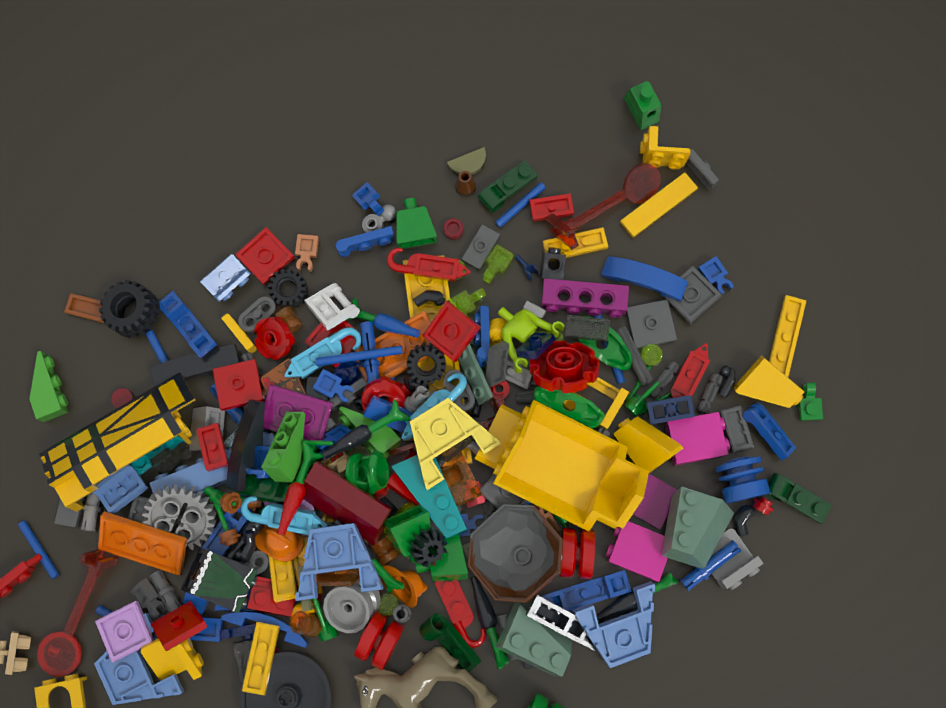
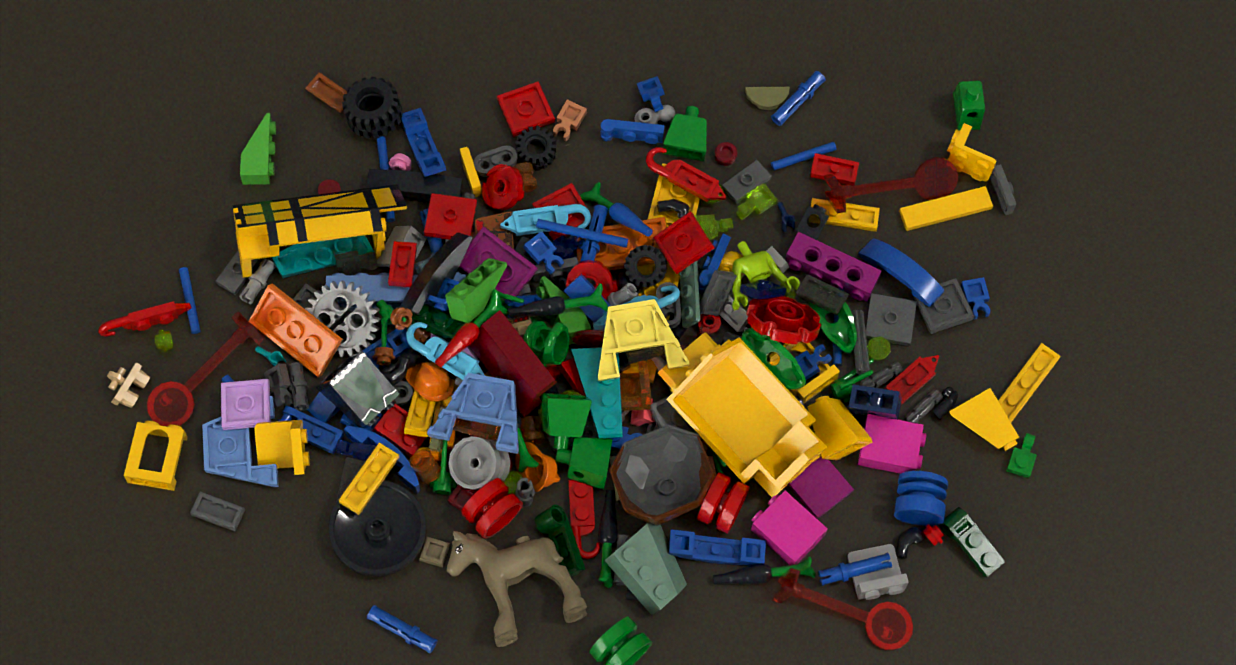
camera: 15 degrees right, 10 degrees down
(29, 598) = (164, 341): none -> clear neon green plate
(120, 488) = (295, 268): medium blue bracket -> none
(133, 573) = (273, 357): none -> teal hand
(175, 350) = (400, 162): none -> bright pink plate
(178, 625) = (302, 415): red plate -> none
(225, 278) = (478, 114): bracket -> none
(327, 311) = (567, 181): white plate -> none
(344, 694) = (434, 552): none -> dark tan tile
(349, 639) = (460, 497): none -> dark red tile
(428, 547) = (585, 435): black gear -> none
(465, 183) = (756, 113): reddish brown cone -> none
(499, 145) = (804, 92): none -> blue pin
(507, 185) = (798, 131): dark green plate -> none
(558, 620) = (685, 562): slope -> none
(597, 393) = (809, 363): none -> blue plate
(624, 636) = (738, 602): medium blue wing -> none
(694, 526) = (855, 523): sand green wedge -> none
(736, 429) = (936, 451): dark grey plate -> none
(754, 601) = (886, 624): none -> clear red piece
(769, 430) = (970, 465): blue plate -> none

